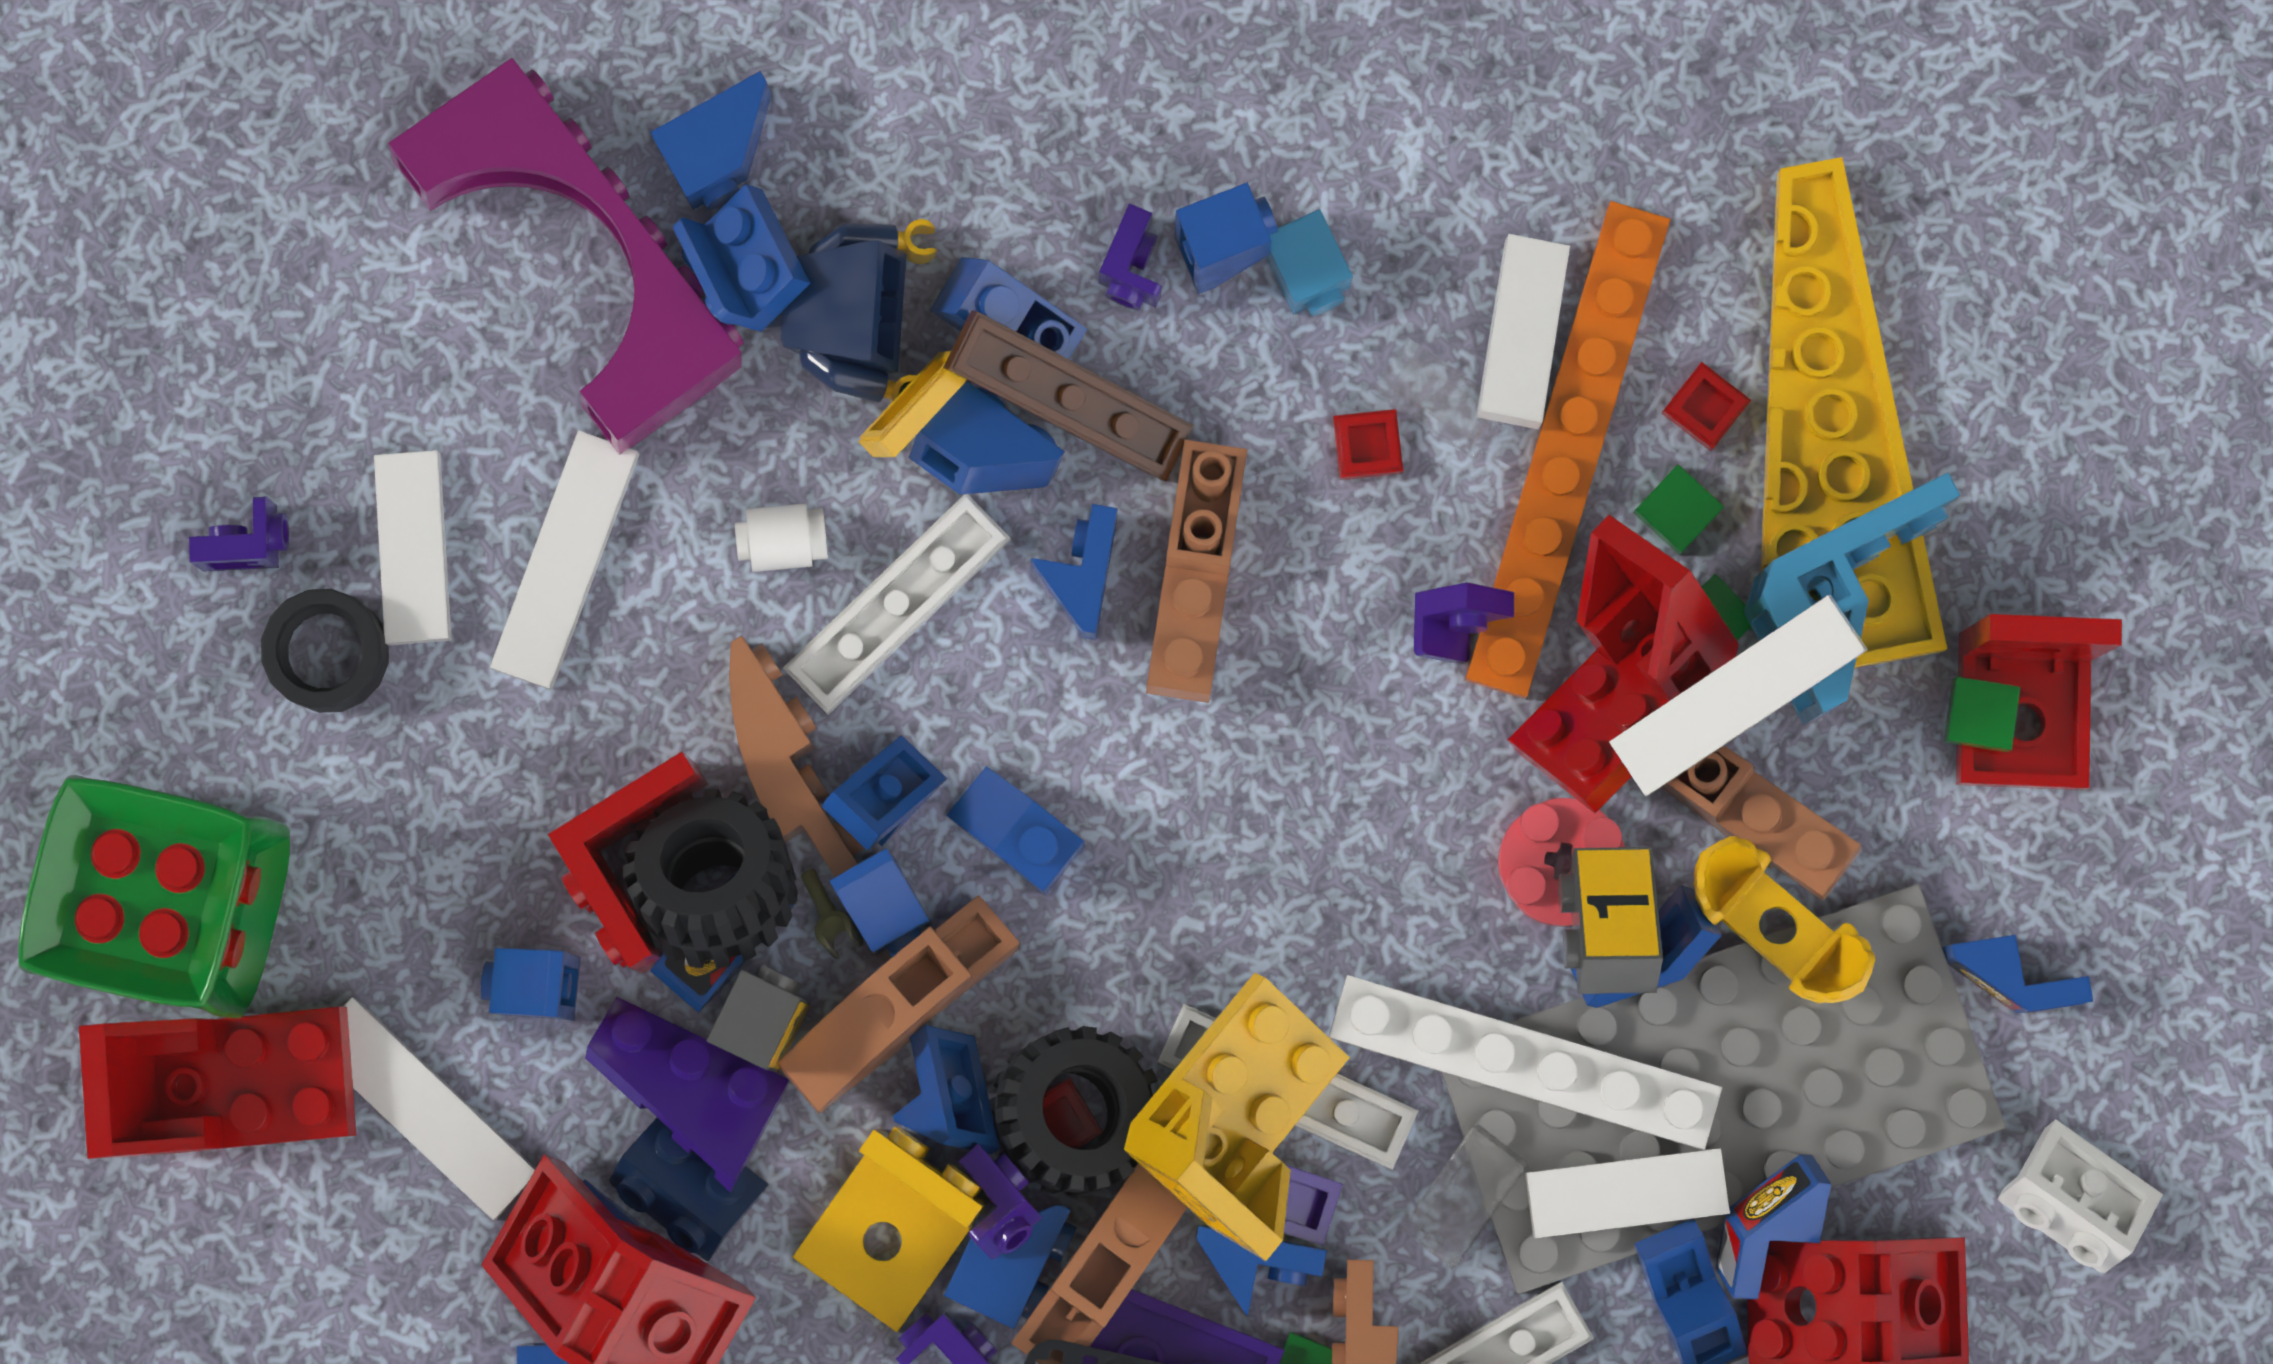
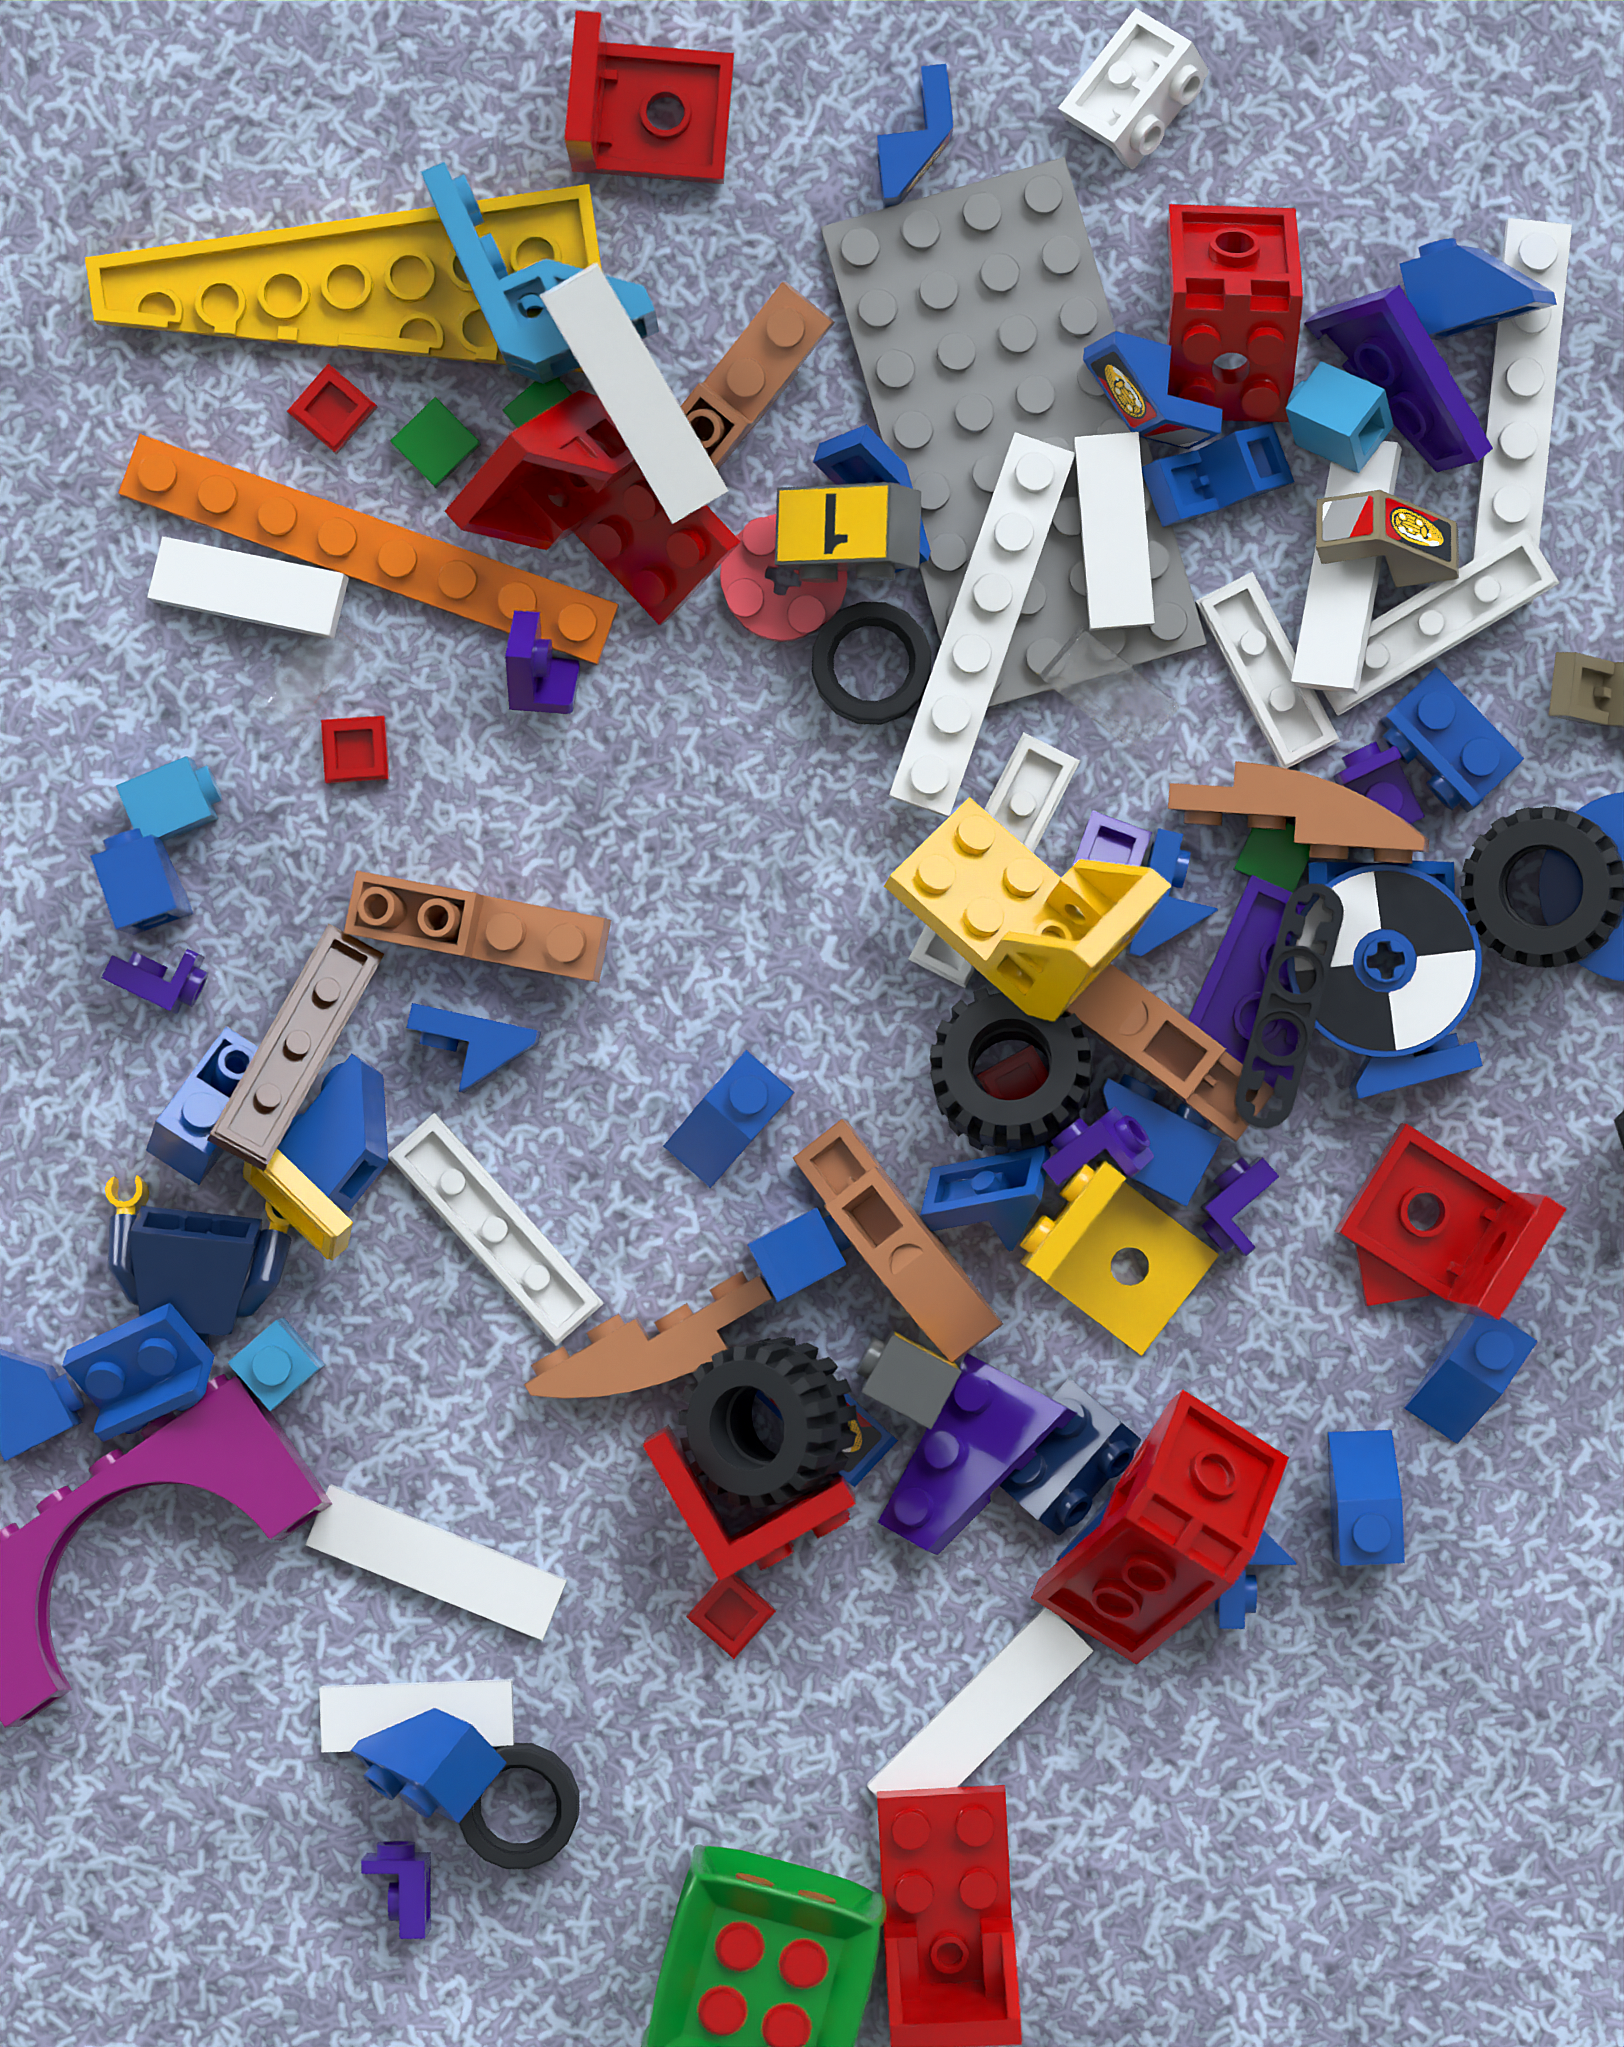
camera: 85 degrees left, 5 degrees up
(361, 560) = (431, 1763): none -> blue slope
(520, 854) = (731, 1614): none -> red tile
(531, 983) = (863, 1606): blue slope -> none
(755, 393) = (276, 1363): none -> dark azure brick
(781, 537) = (424, 1342): white brick -> none
(831, 920) = (810, 1306): olive hand -> none
(884, 793) = (687, 1247): blue slope -> none
(1514, 918) = (878, 615): none -> black tyre
(1818, 961) = (895, 329): yellow piece -> none
(1982, 714) = (656, 153): green tile -> none

